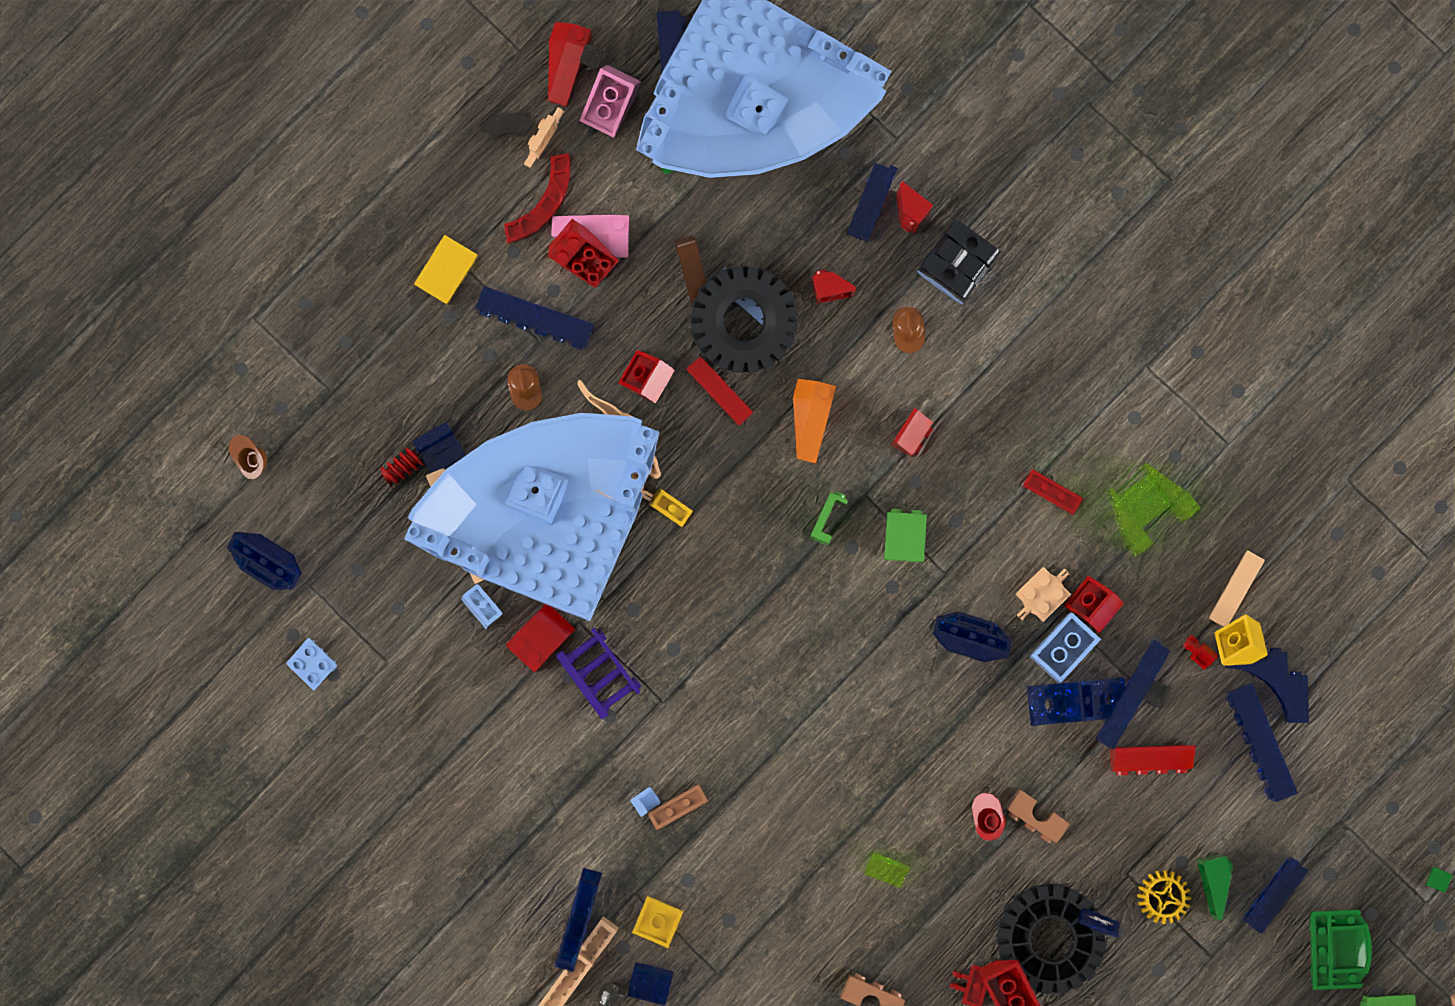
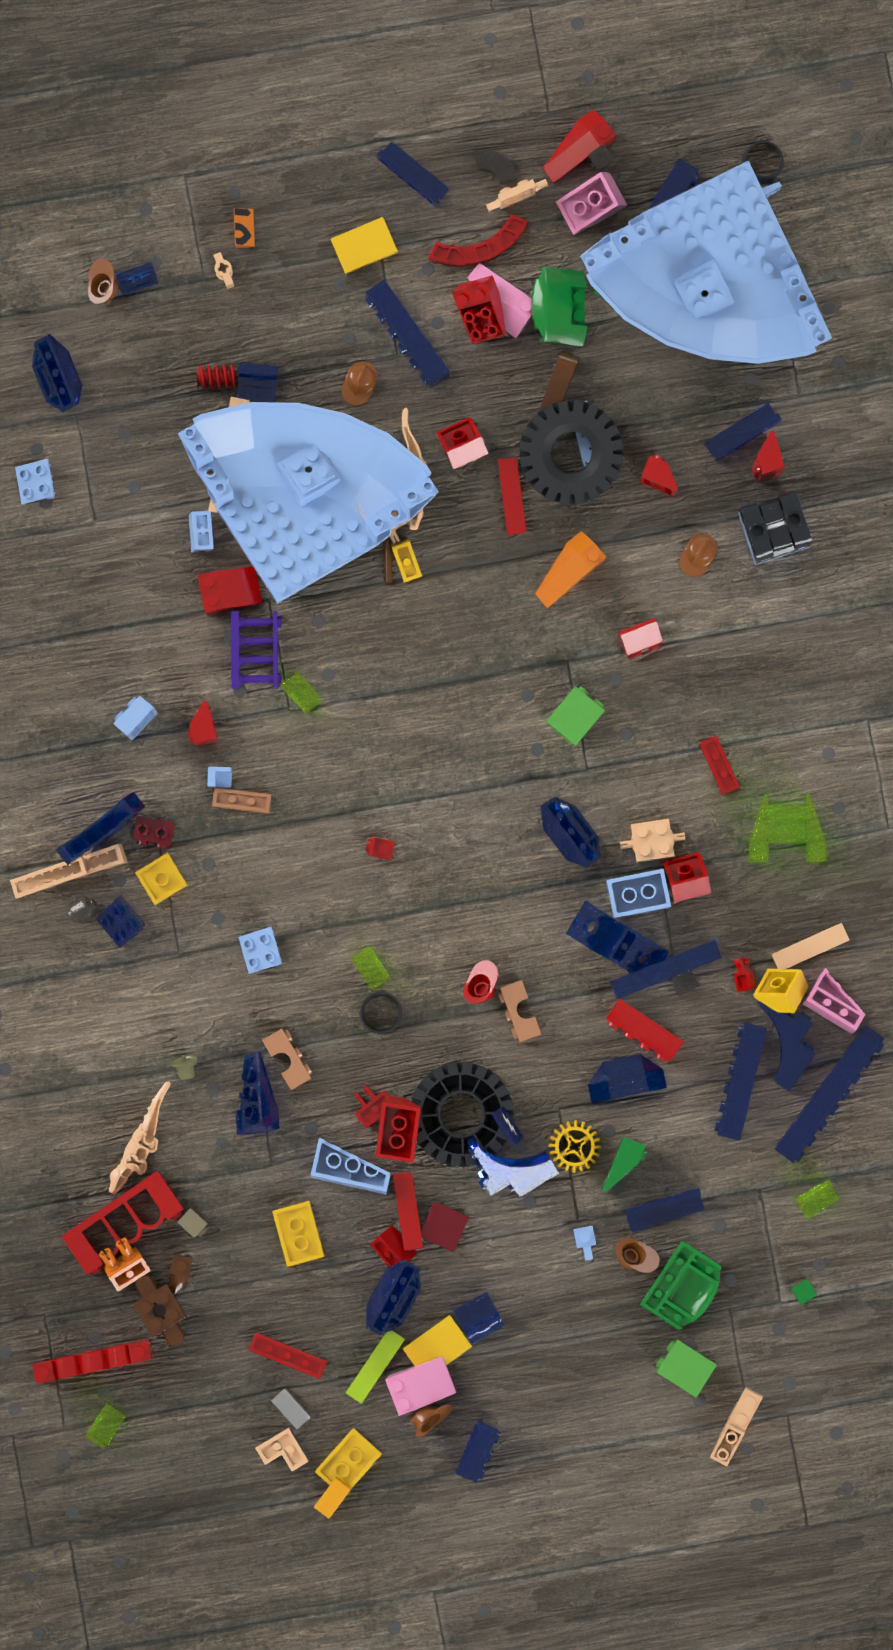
camera: 40 degrees right, 0 degrees up
(275, 432) = (137, 278): none -> clear blue slope
(334, 326) = (244, 228): none -> slope
(343, 373) = (223, 270): none -> light nougat piece
(443, 181) = (412, 173): none -> clear blue panel
(538, 803) = (135, 717): none -> light blue slope
(601, 769) = (202, 727): none -> red slope
(622, 887) = (154, 832): none -> dark red brick
(646, 204) = (560, 306): none -> green slope
(655, 519) = (388, 560): none -> reddish brown bar
(662, 680) = (301, 693): none -> clear neon green panel
(784, 922) = (260, 950): none -> light blue hinge
(817, 535) = (521, 653): bright green panel -> none
(822, 763) = (380, 848): none -> red bracket
(933, 918) = (375, 995): none -> black tyre
(1133, 956) = (518, 1174): none -> clear blue arch
(1165, 809) = (625, 1078): none -> clear blue wedge
(1228, 967) = (585, 1238): none -> light blue plate
(1283, 951) = (636, 1255): none -> dark orange piece
(1290, 622) = (833, 1003): none -> bright pink wedge
(1341, 700) = (829, 1093): none -> clear blue brick
(1393, 794) = (817, 1198): none -> clear neon green panel

